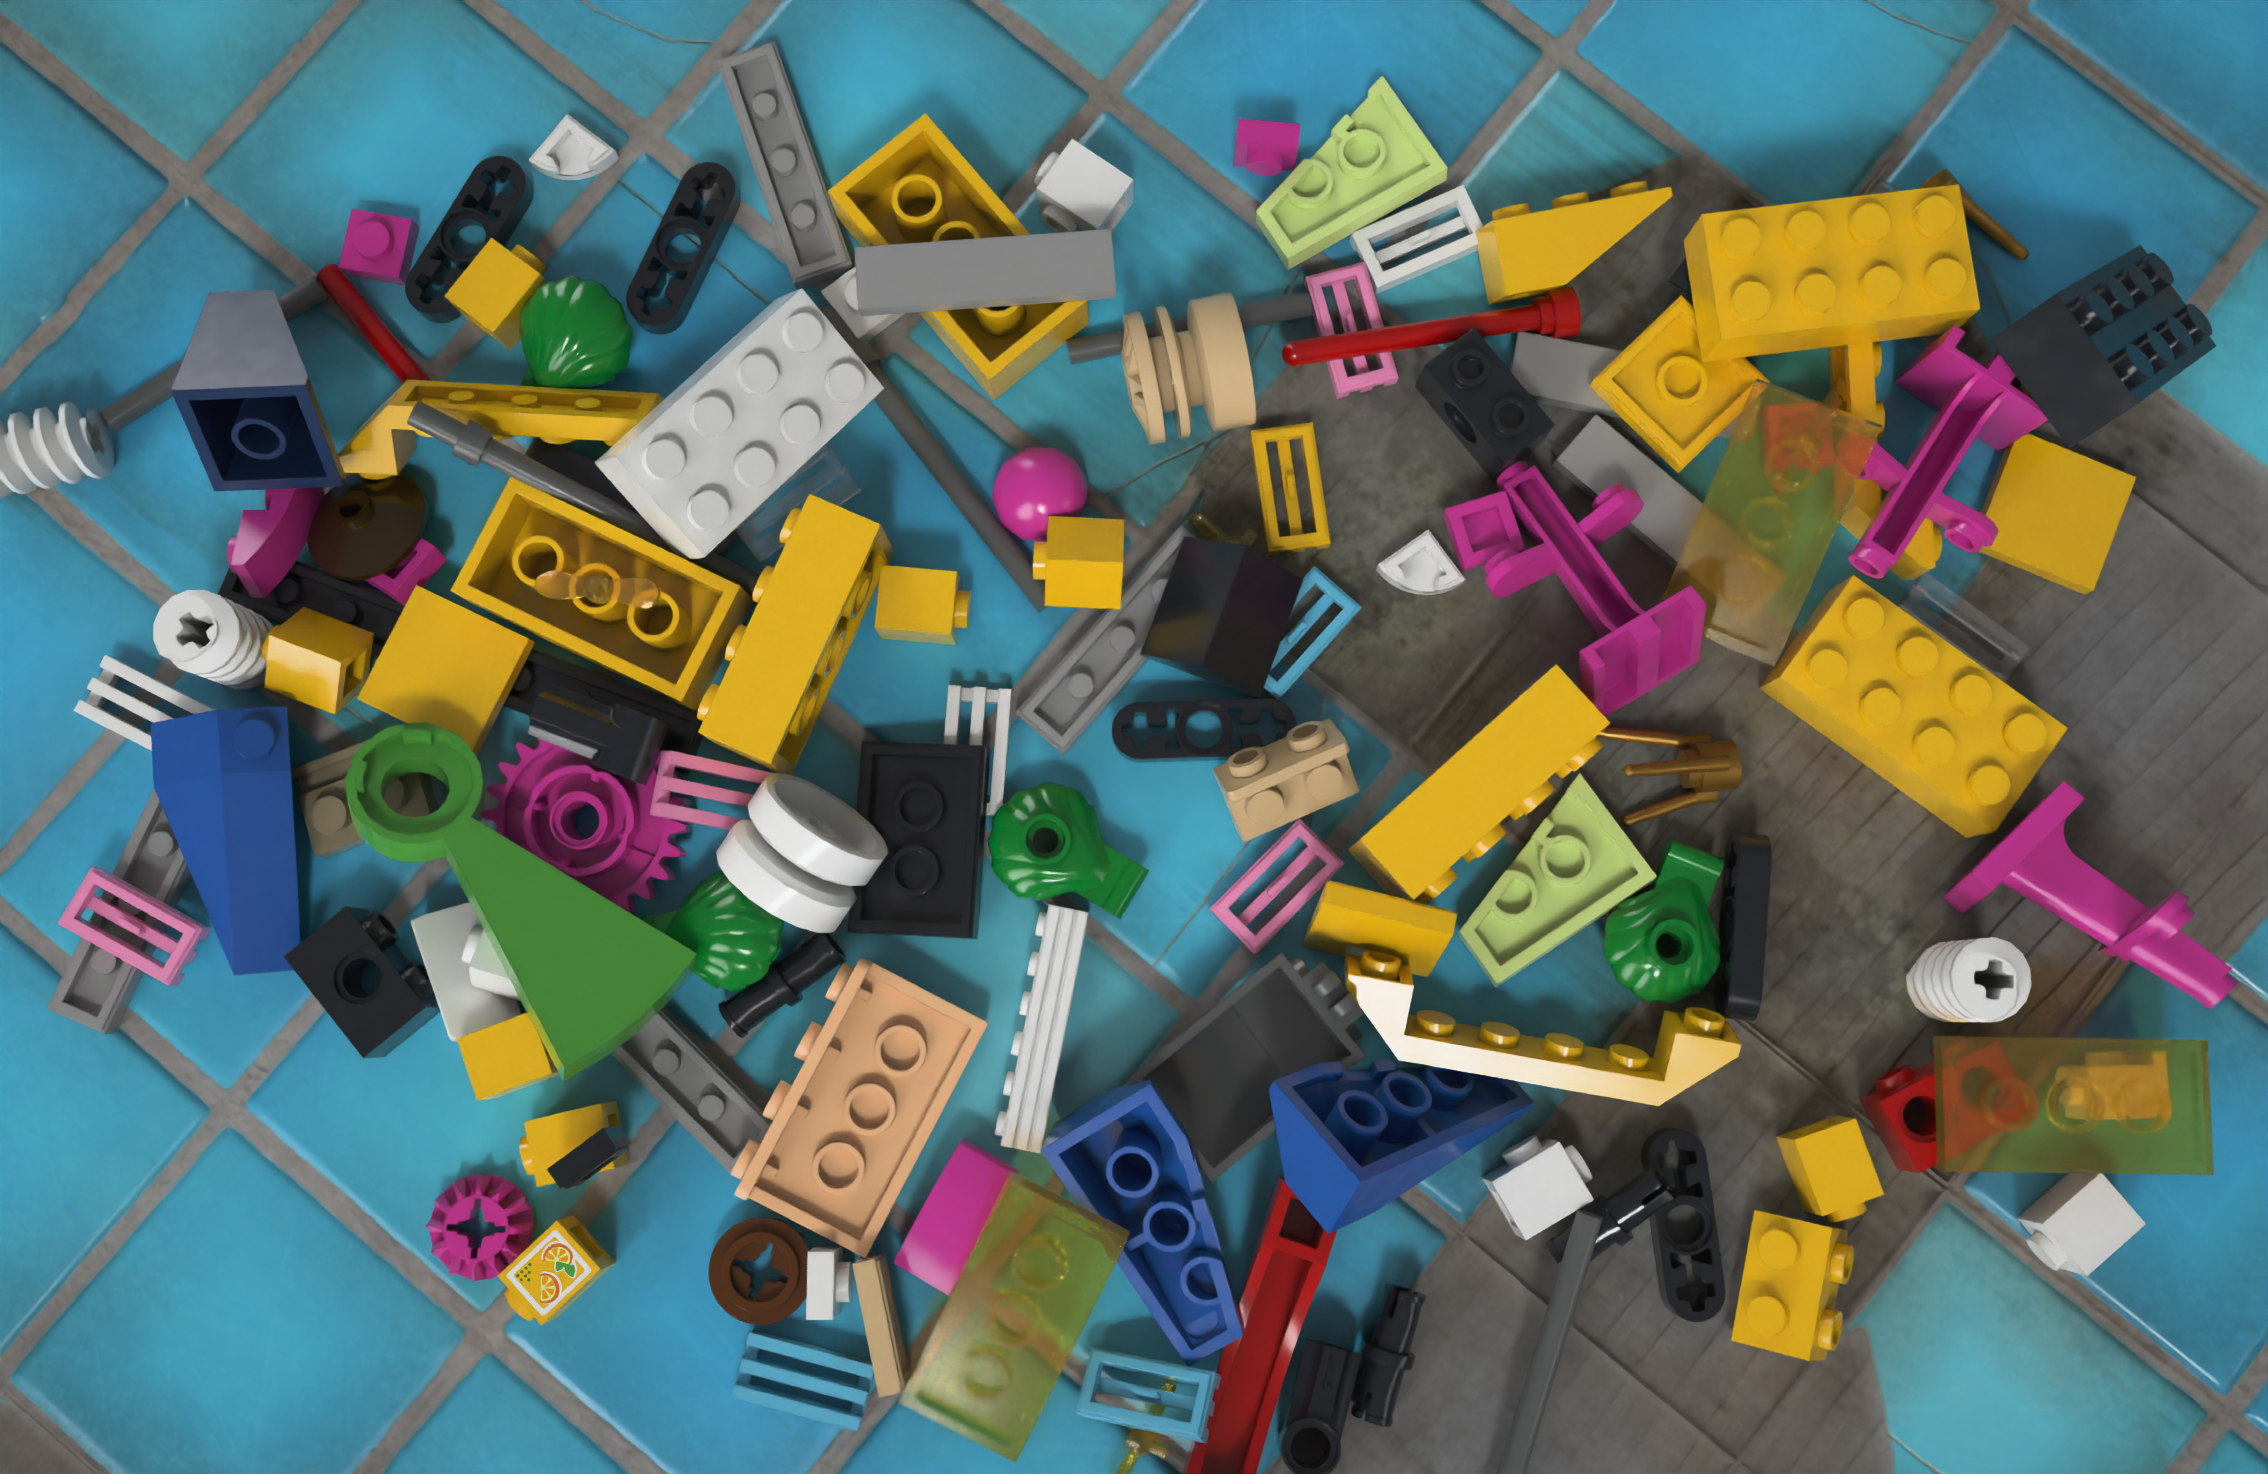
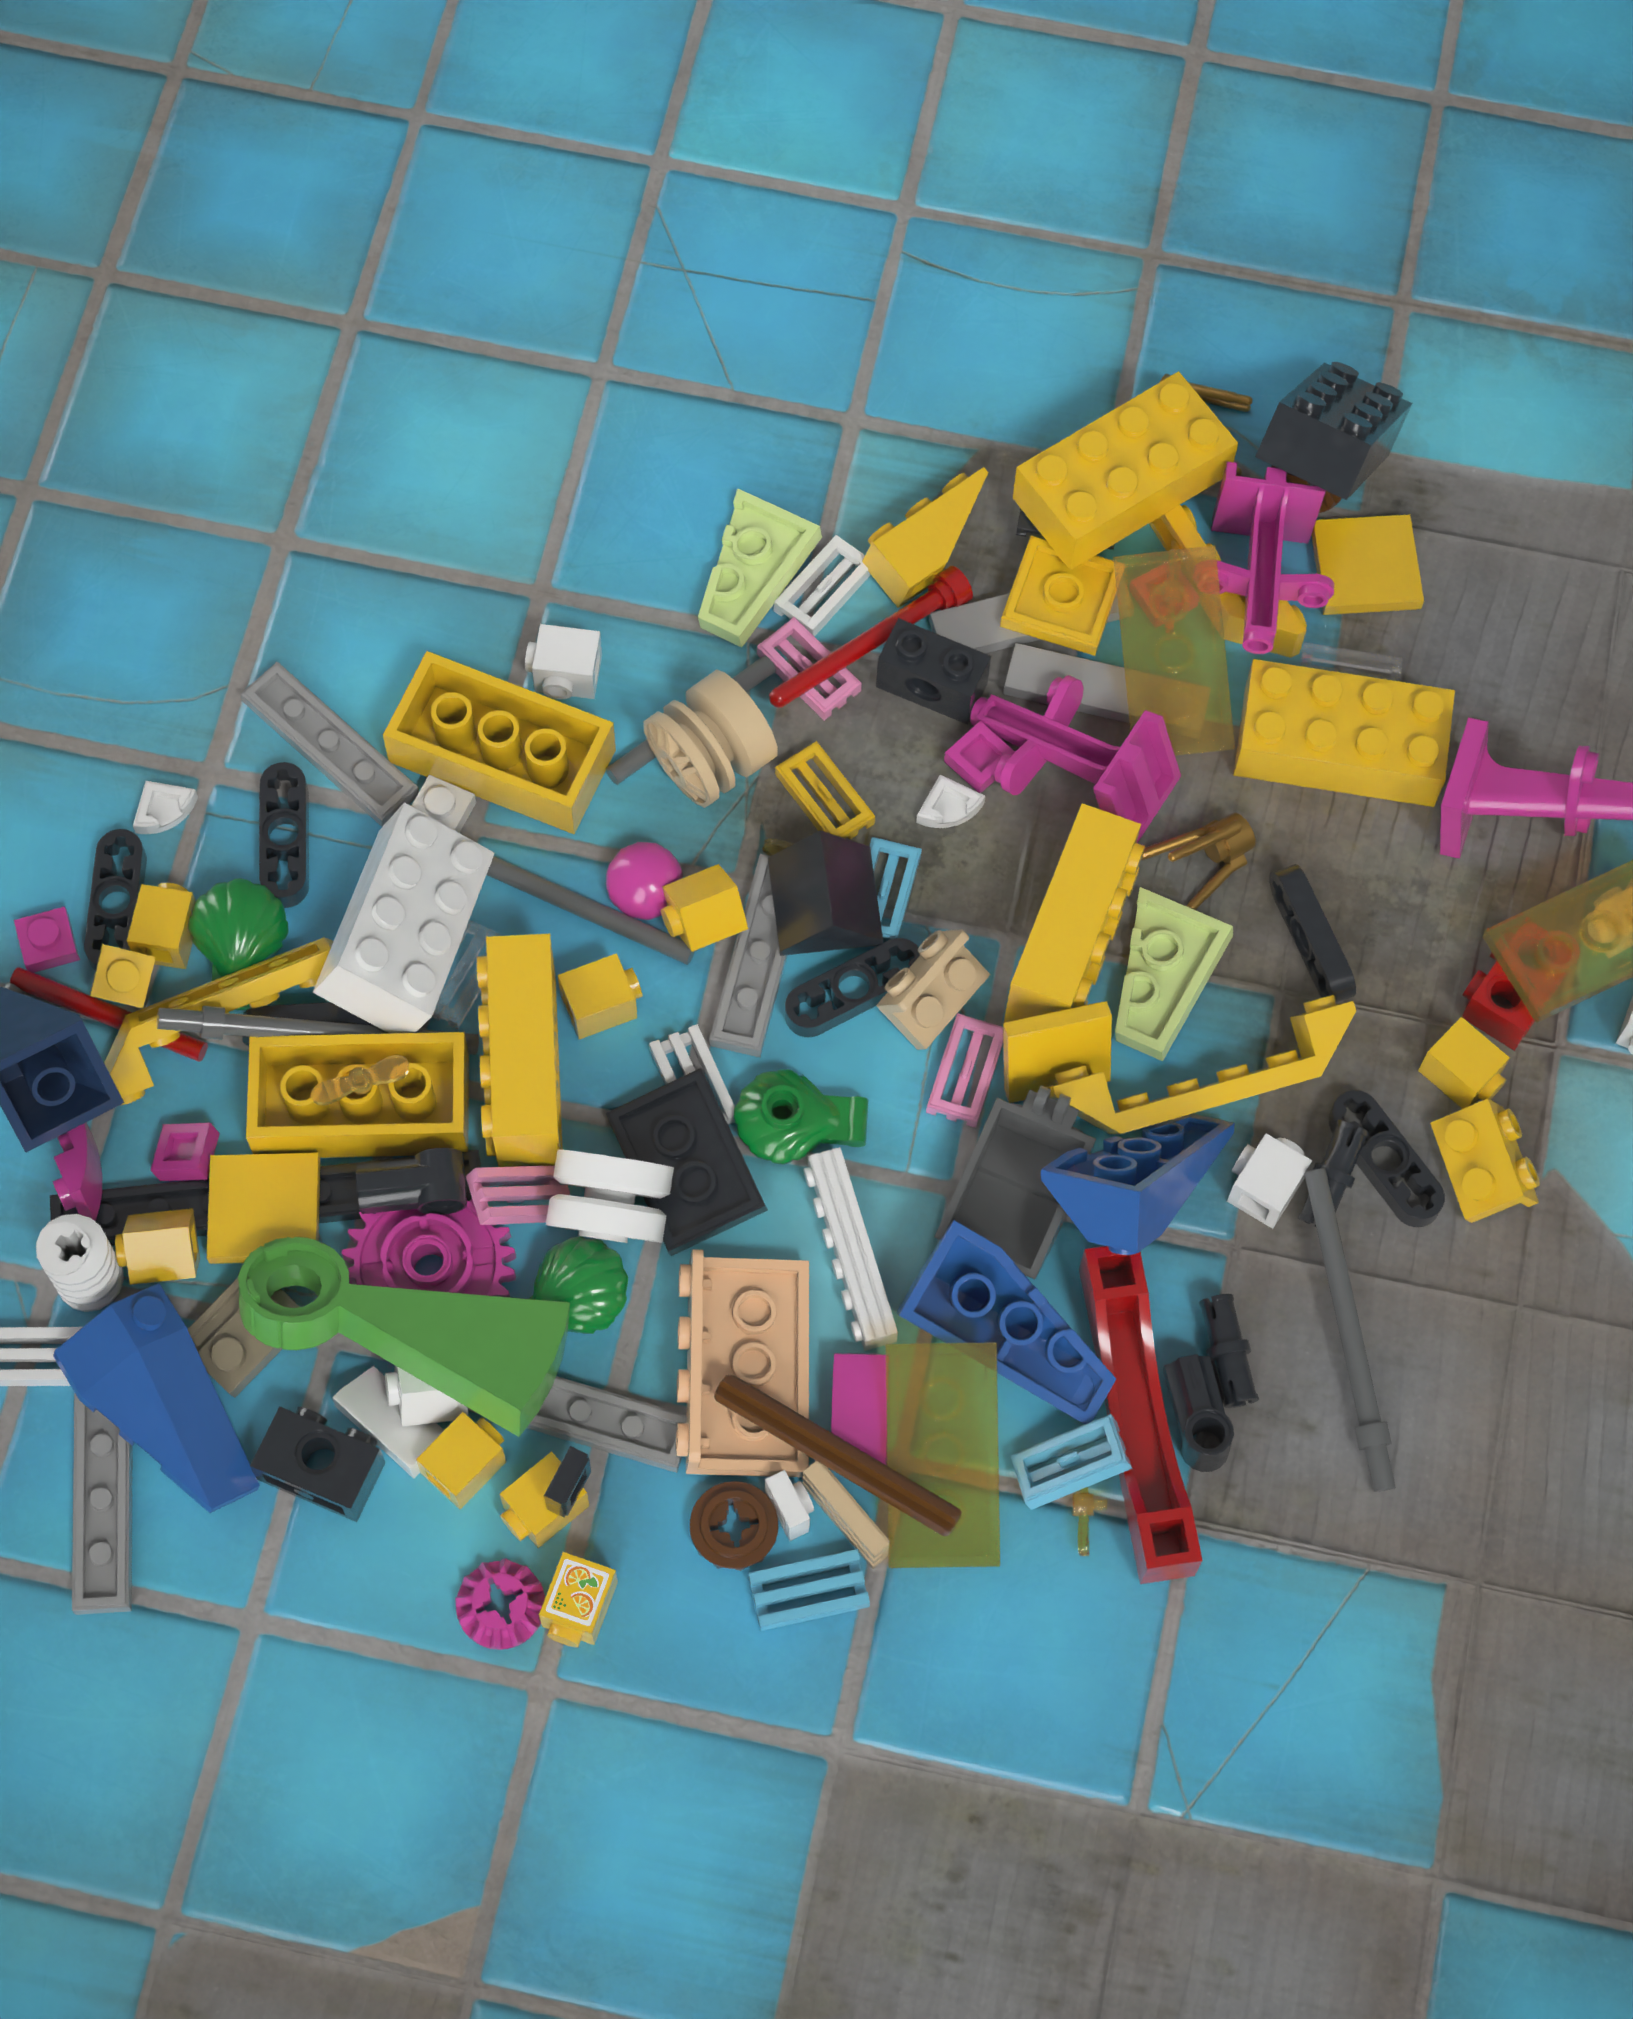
camera: 30 degrees left, 15 degrees down
(181, 951) = (122, 1532): bright pink tile -> none
(367, 526) = (145, 1137): dark brown dish -> none
(420, 334) = (122, 976): none -> yellow brick
(782, 983) = (638, 1311): black pin -> none
(898, 1267) = (838, 1455): none -> reddish brown axle
(985, 272) = (530, 735): light grey tile -> none
(1266, 146) = (680, 570): dark pink plate -> none
(1664, 937) = (1261, 967): green animal -> none
(1970, 980) = (1485, 887): white piece -> none

